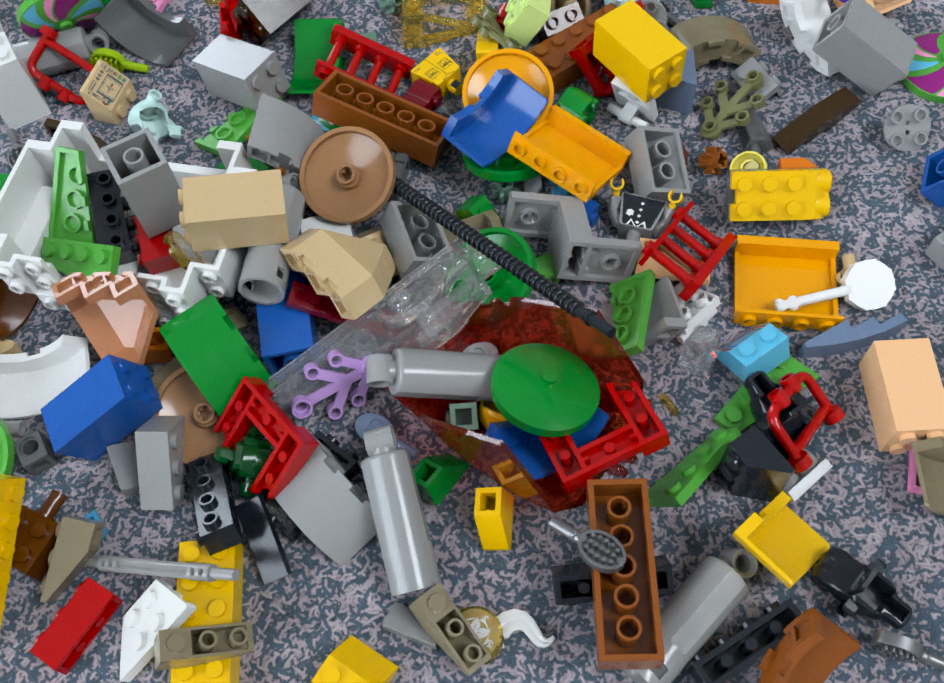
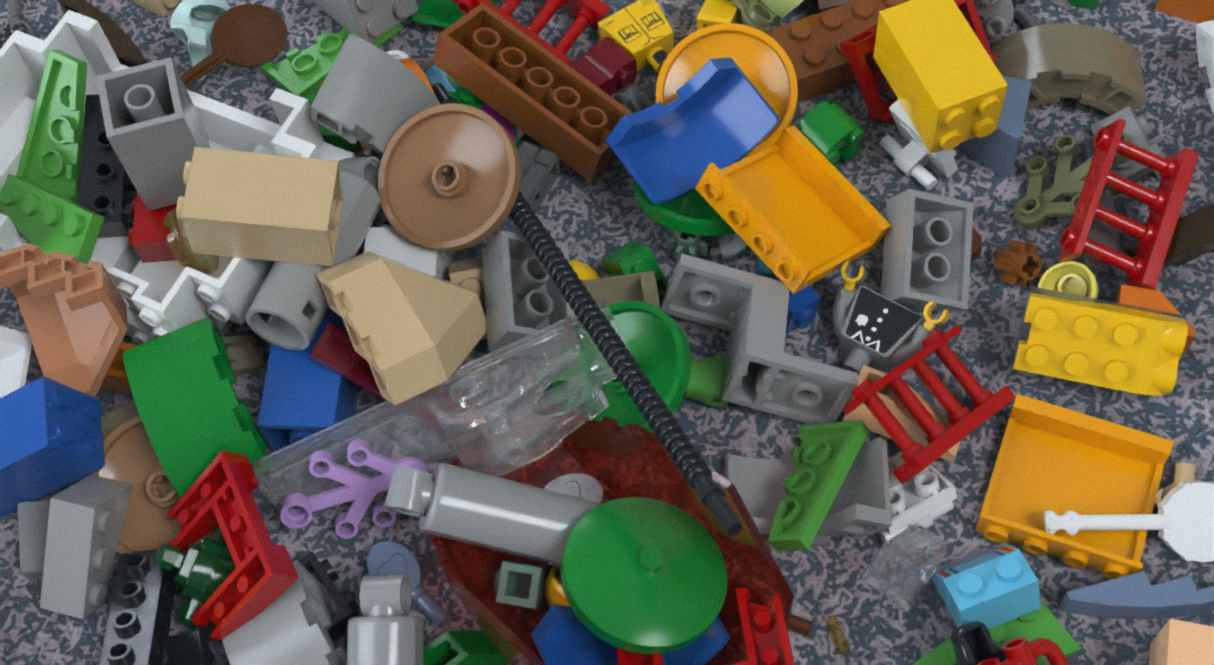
camera: 15 degrees right, 0 degrees up
(180, 124) = (242, 37): none -> reddish brown piece
(791, 105) = (1163, 203): none -> red fence

